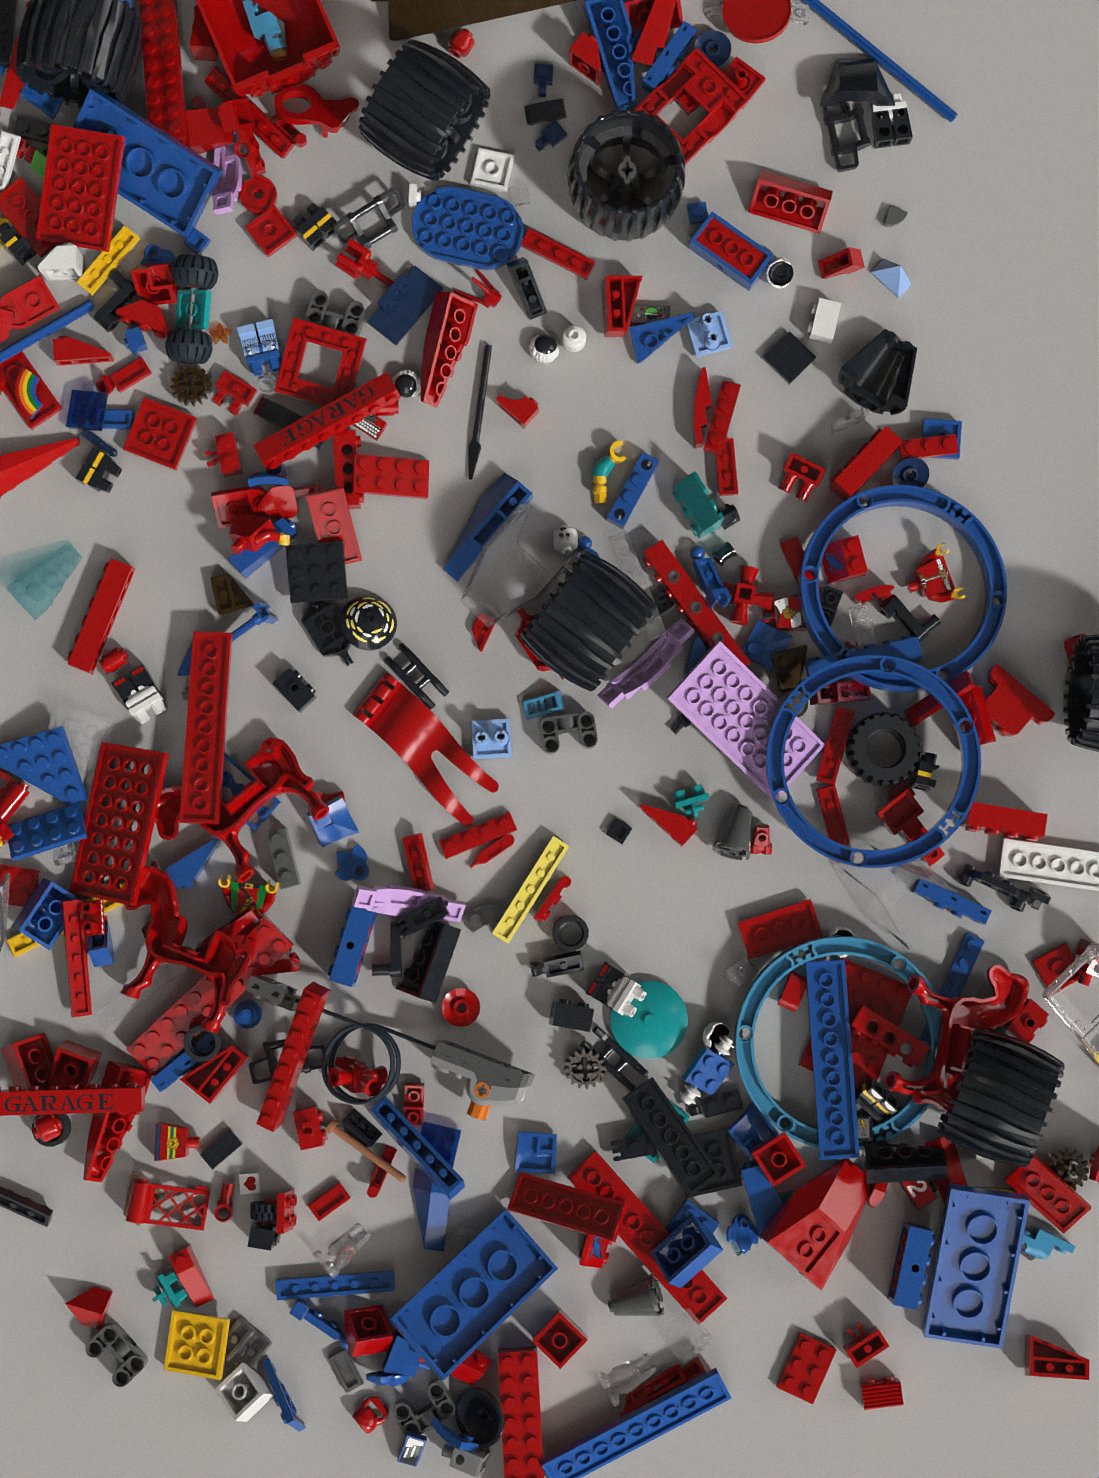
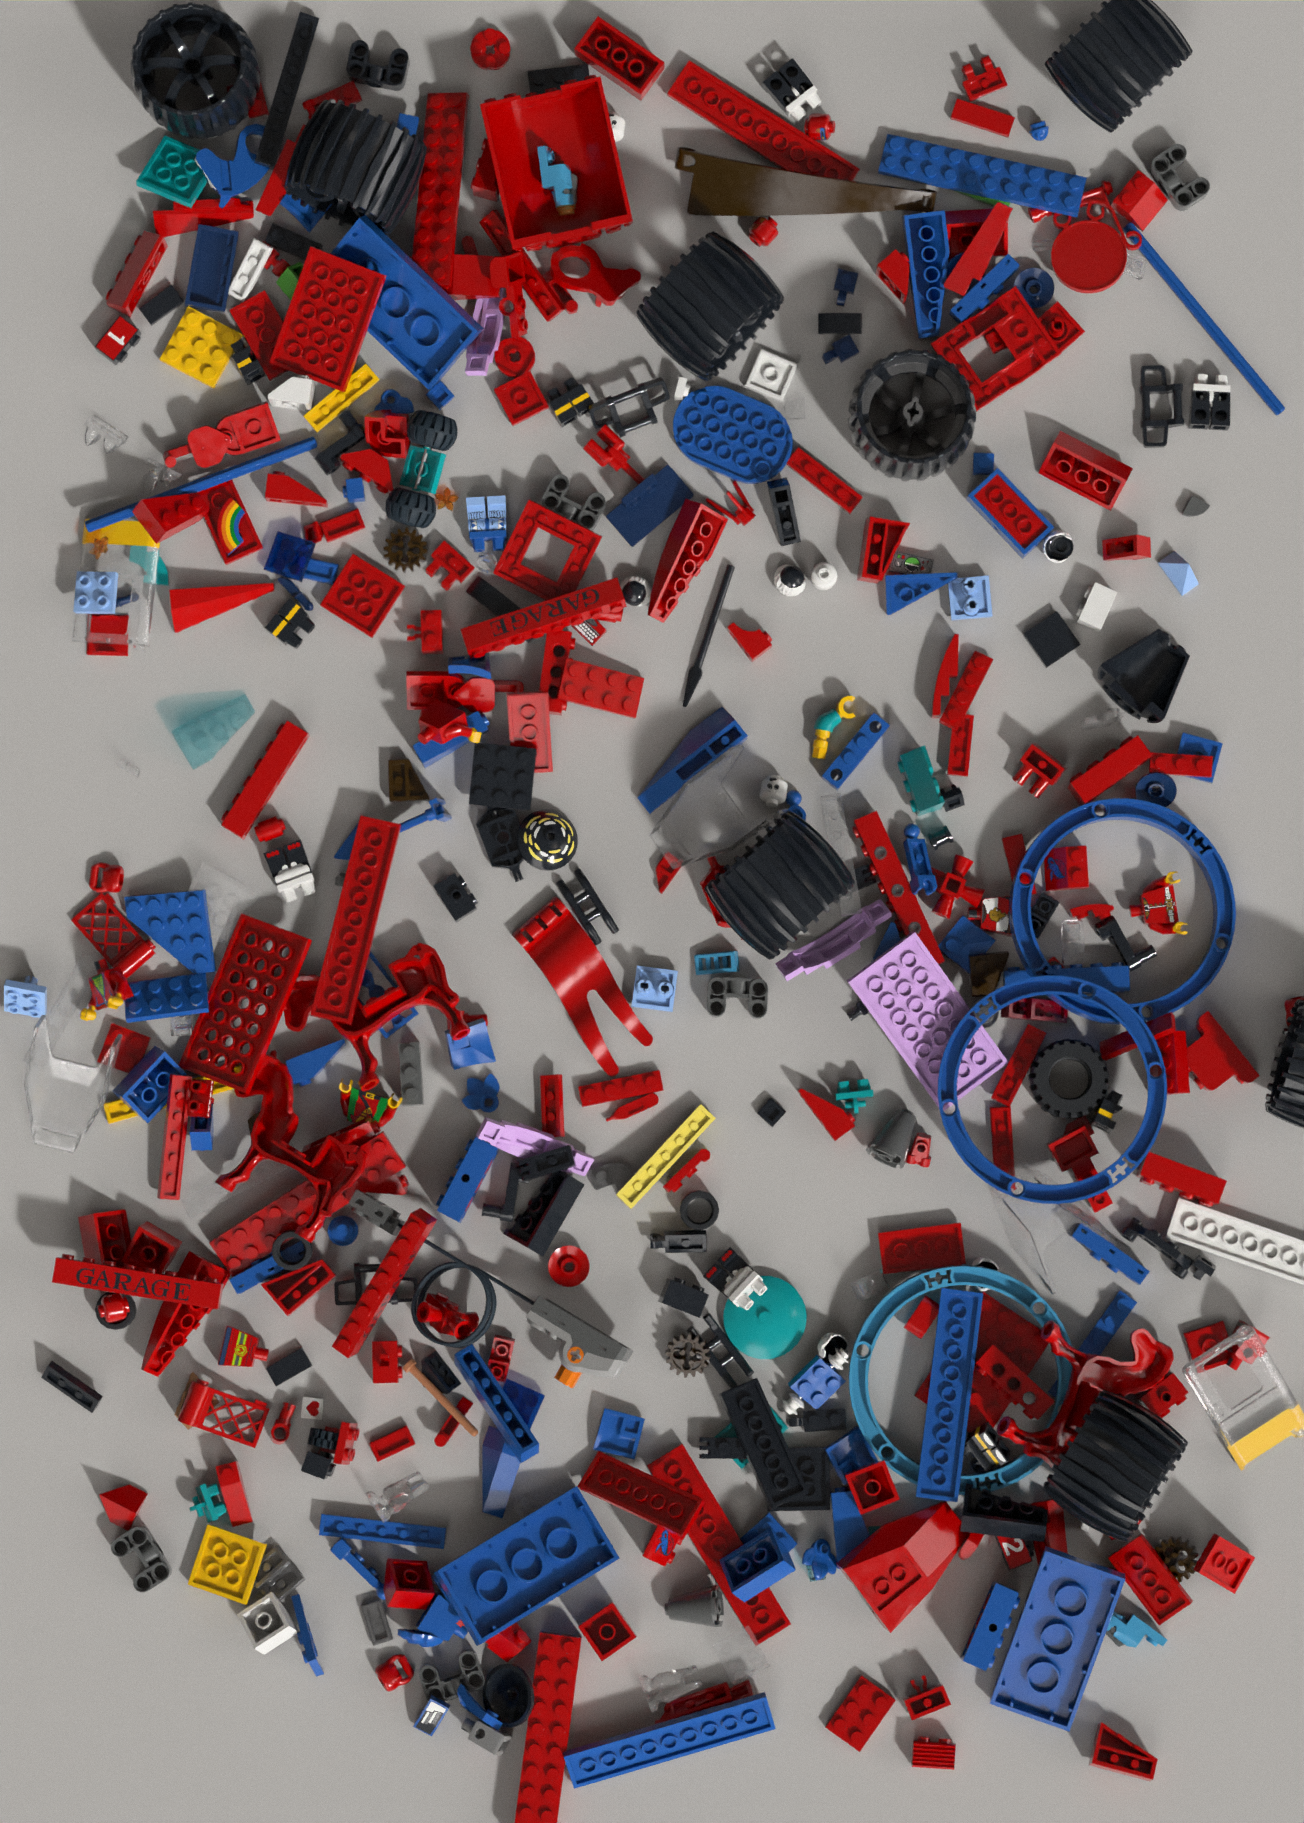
camera: 15 degrees right, 0 degrees up
(856, 82) = (1181, 354): black wedge -> none
(864, 1126) = (969, 1473): sticker -> none

